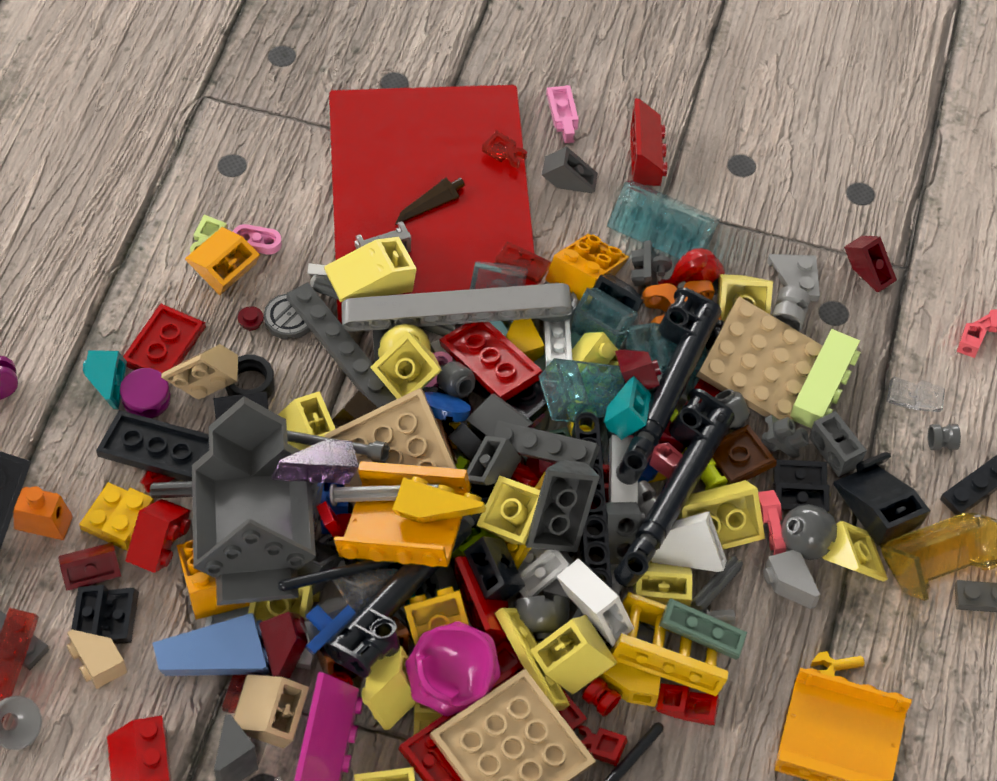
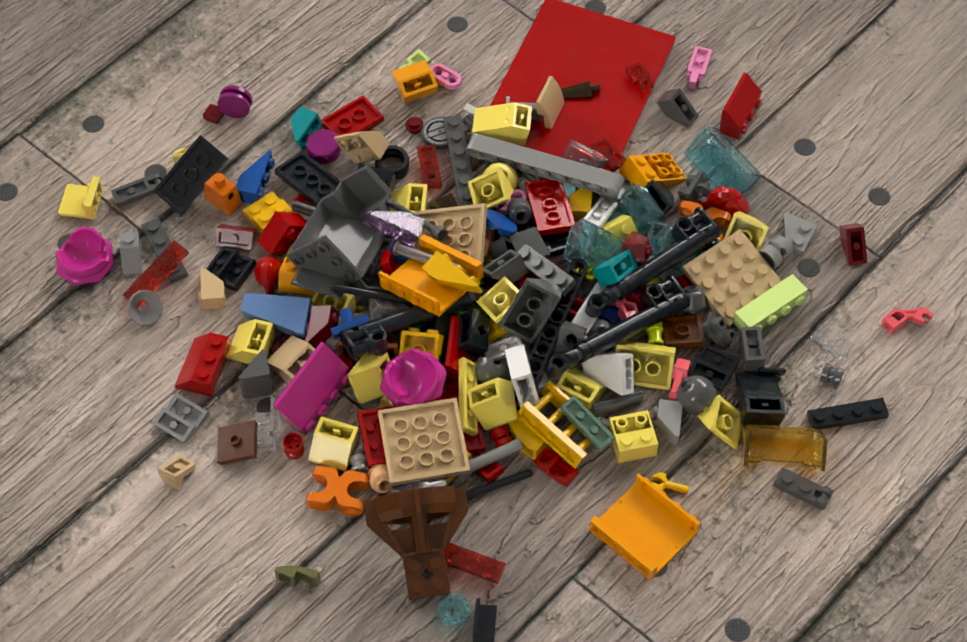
camera: 30 degrees right, 0 degrees up
(73, 474) = (252, 180): none -> blue slope
(166, 599) = (267, 273): none -> red piece
(193, 708) = (250, 340): none -> light yellow slope
(301, 365) = (429, 166): none -> clear red plate
(417, 222) = (550, 102): none -> tan slope
(610, 721) = (494, 455): none -> light grey pin
(765, 617) = (633, 436): none -> light yellow slope

